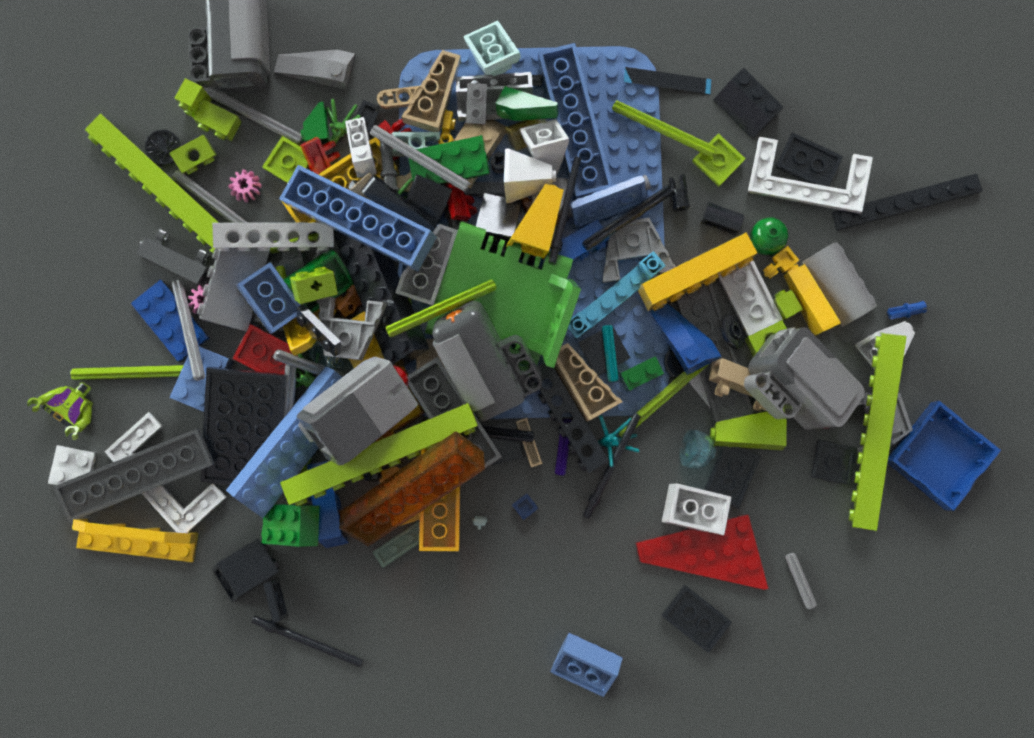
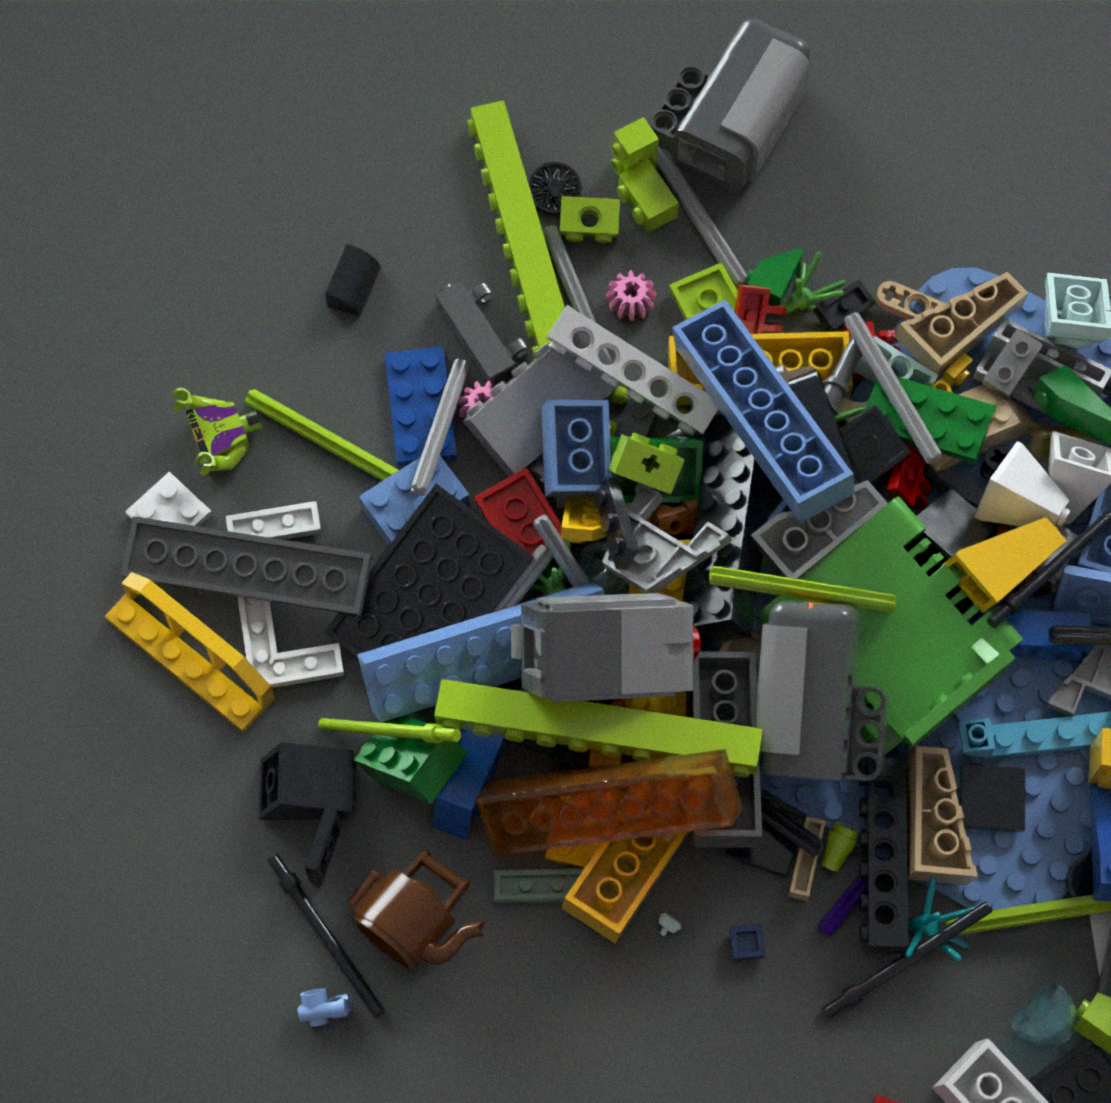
camera: 35 degrees right, 15 degrees down
(85, 272) = (352, 281): none -> black brick
(292, 514) = (429, 733): none -> lime bar
(320, 67) = (826, 209): light grey wedge -> none
(329, 682) = (318, 1008): none -> light blue plate
(343, 609) = (408, 917): none -> reddish brown piece
(360, 147) = (819, 330): white slope -> none
(541, 425) = (839, 846): none -> lime cone
(610, 354) = (999, 804): teal axle -> none
(641, 374) = (1027, 859): green brick -> none

